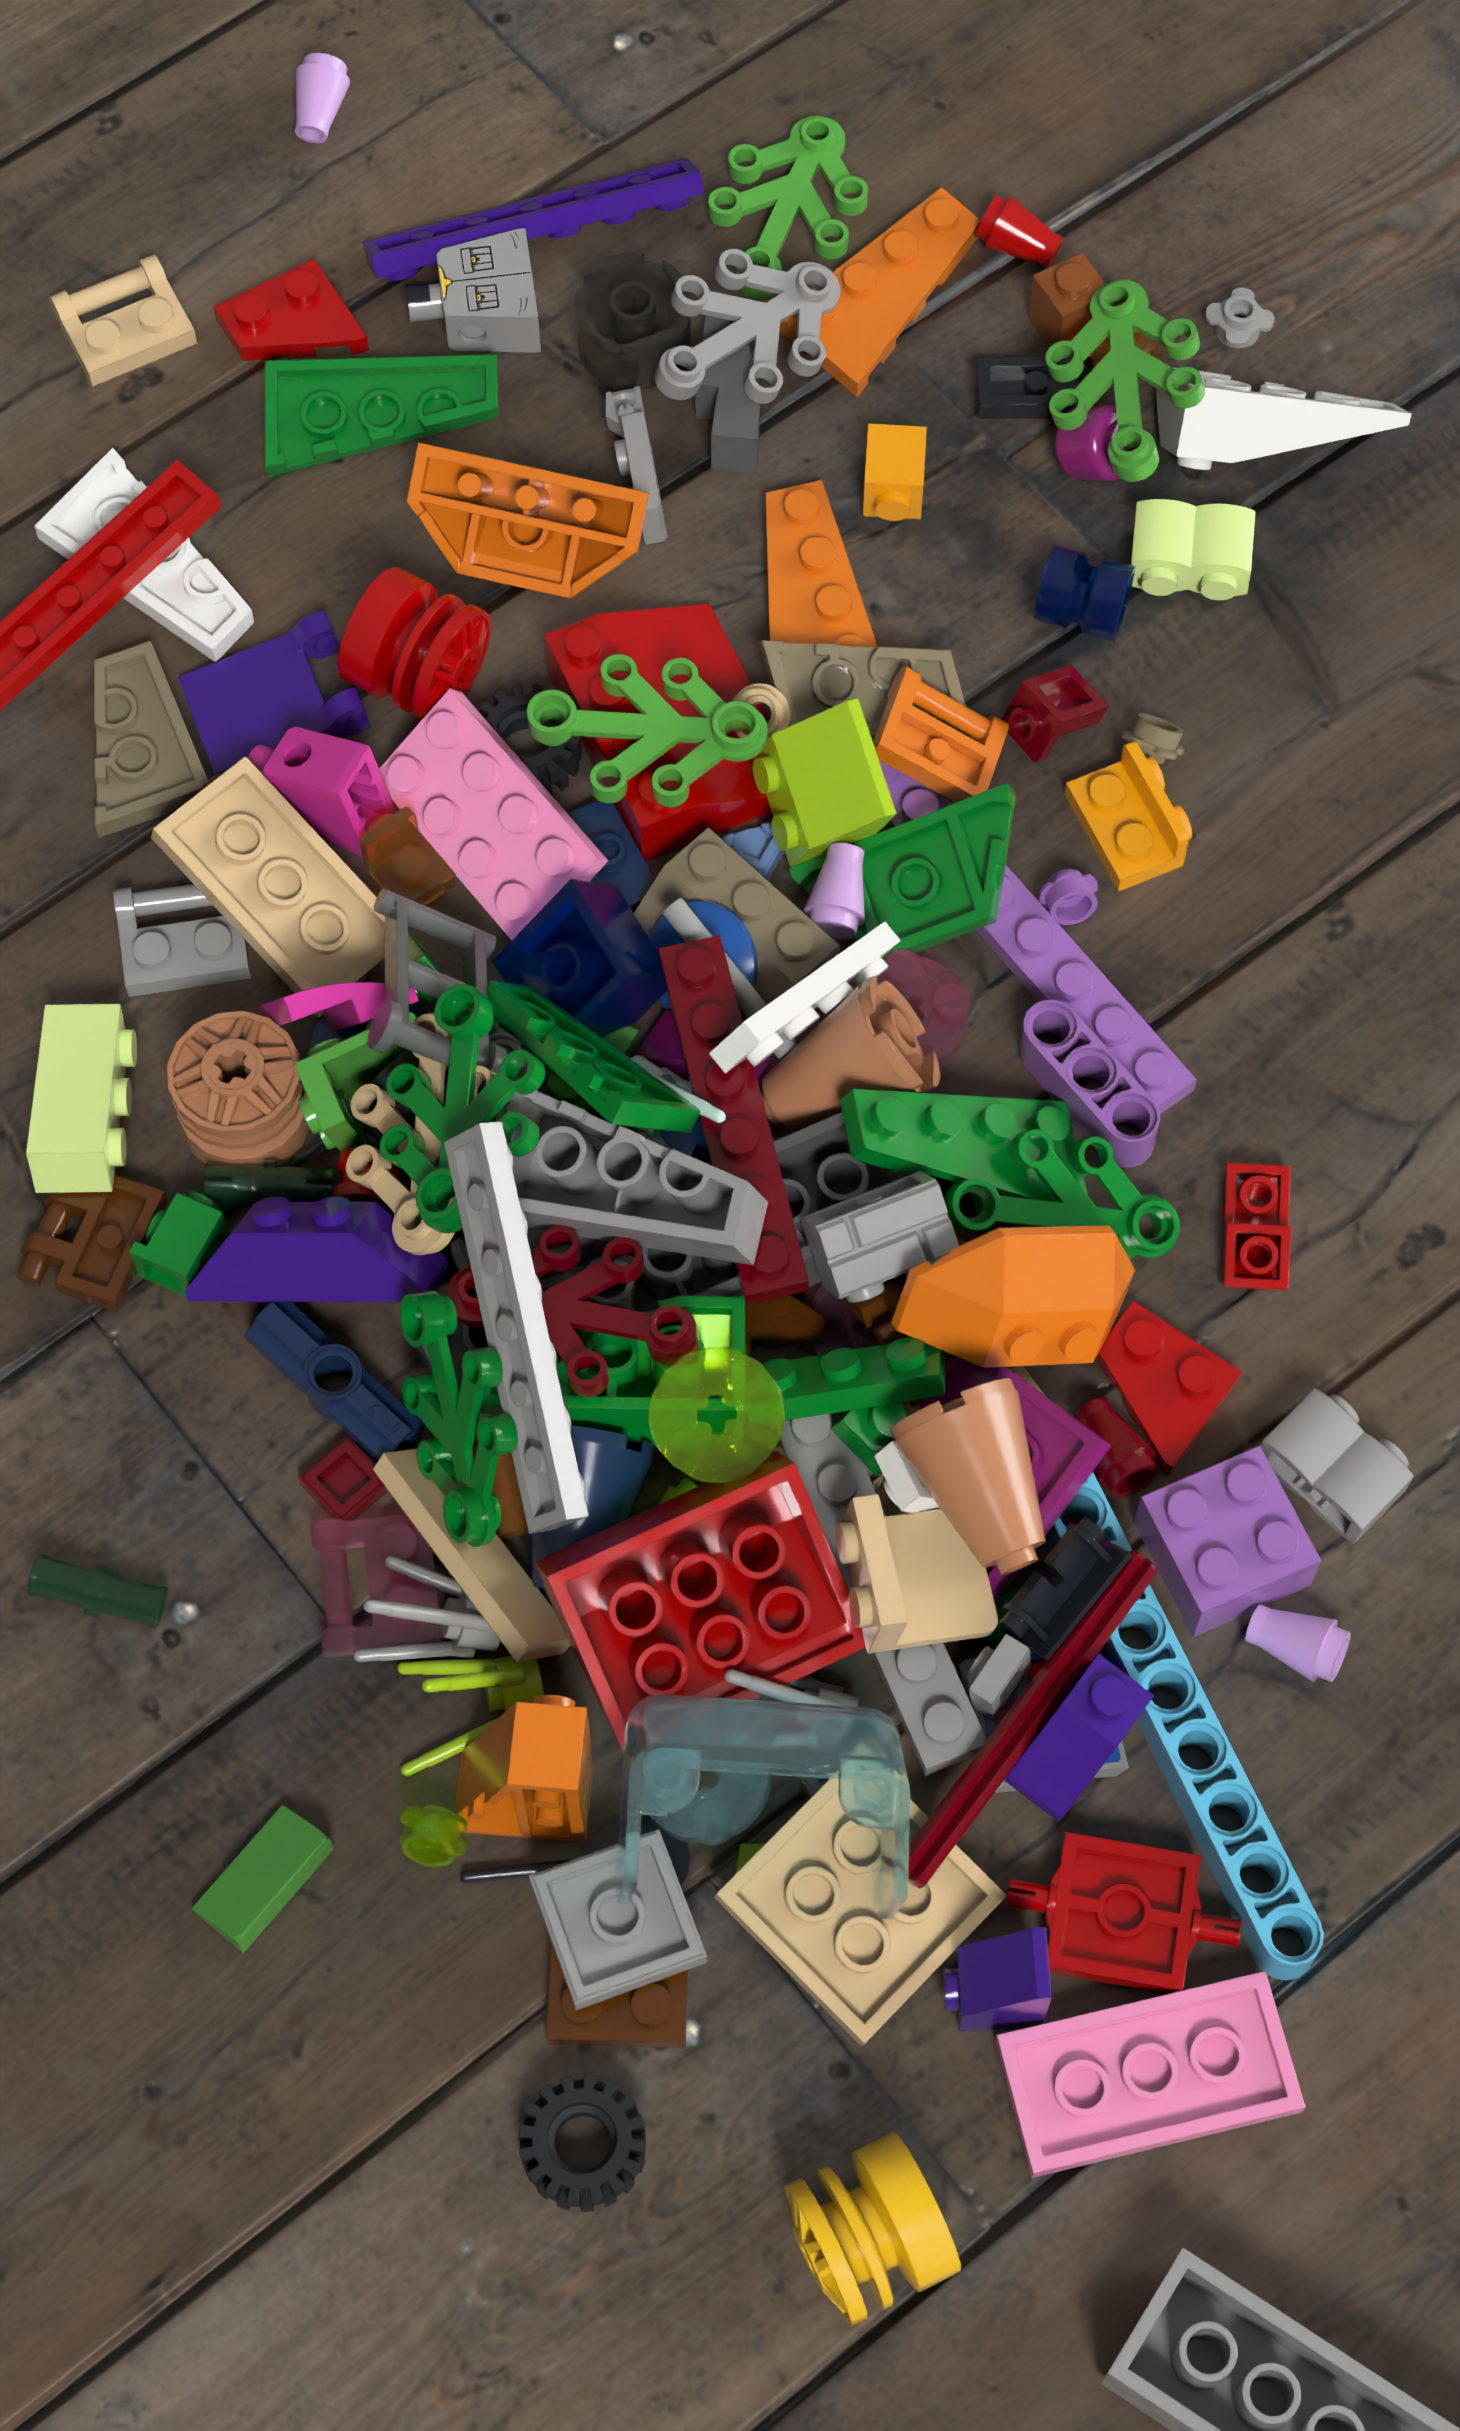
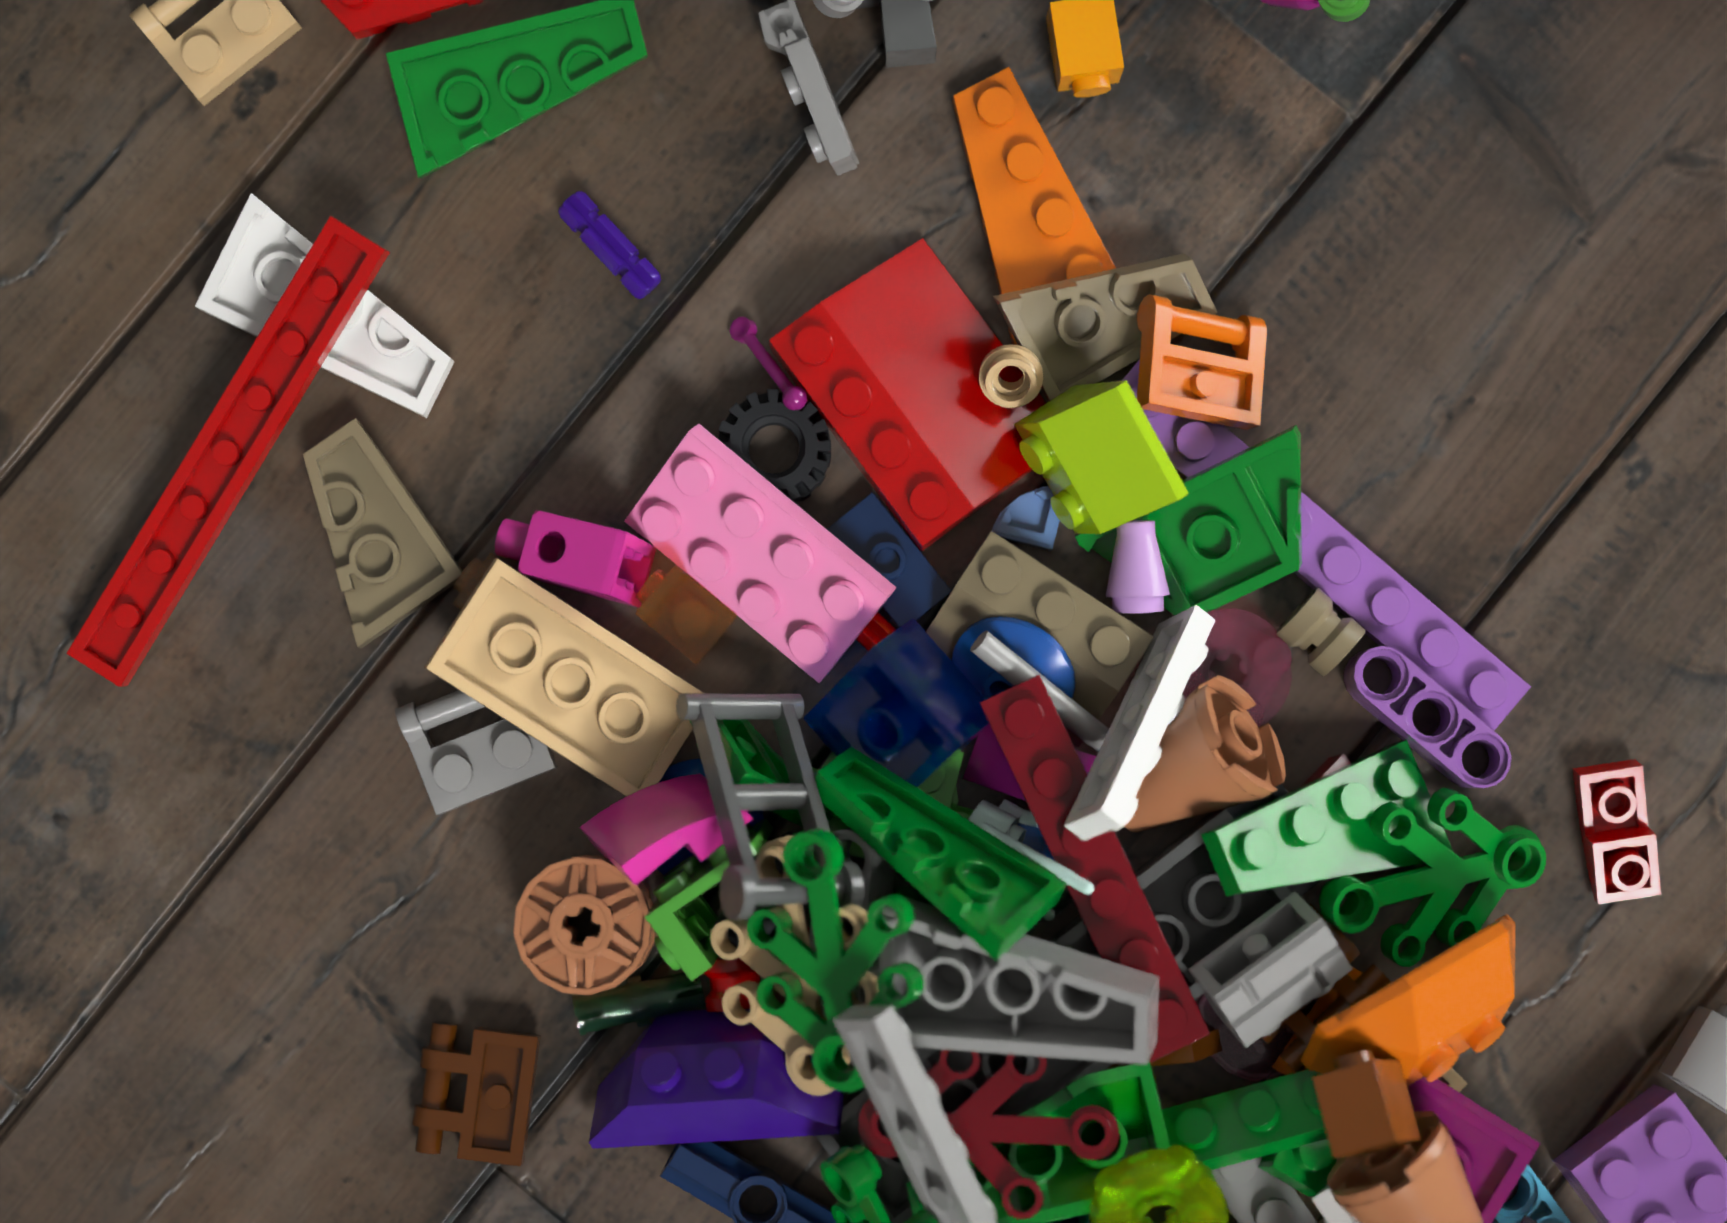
camera: 10 degrees left, 20 degrees up
(80, 1098) = (429, 961): yellowish green brick -> none
(180, 1242) = (569, 1085): green brick -> none
(266, 692) = (490, 453): dark purple flag -> none
(412, 642) = (635, 377): red wheel -> none
(420, 550) = (609, 244): none -> dark purple axle
(524, 521) = (712, 187): orange wedge -> none
(526, 648) = (745, 332): none -> magenta hinge
(655, 729) = (919, 439): bright green plant -> none
(939, 1345) = (1365, 1105): none -> dark orange brick
(1001, 989) = (1320, 632): none -> dark tan wheel
(1051, 708) = (1306, 295): dark red bracket -> none
(1069, 896) = (1364, 506): medium lavender plate -> none
(1084, 593) = (1315, 153): clear blue wheel -> none
(1129, 1461) = (1525, 1098): dark red cone -> none
(1130, 818) = (1408, 402): light orange bracket -> none
(1155, 737) = (1417, 306): dark tan plate -> none
(1165, 1381) = (1564, 1019): red wing -> none
(1192, 548) = (1415, 71): yellowish green brick -> none

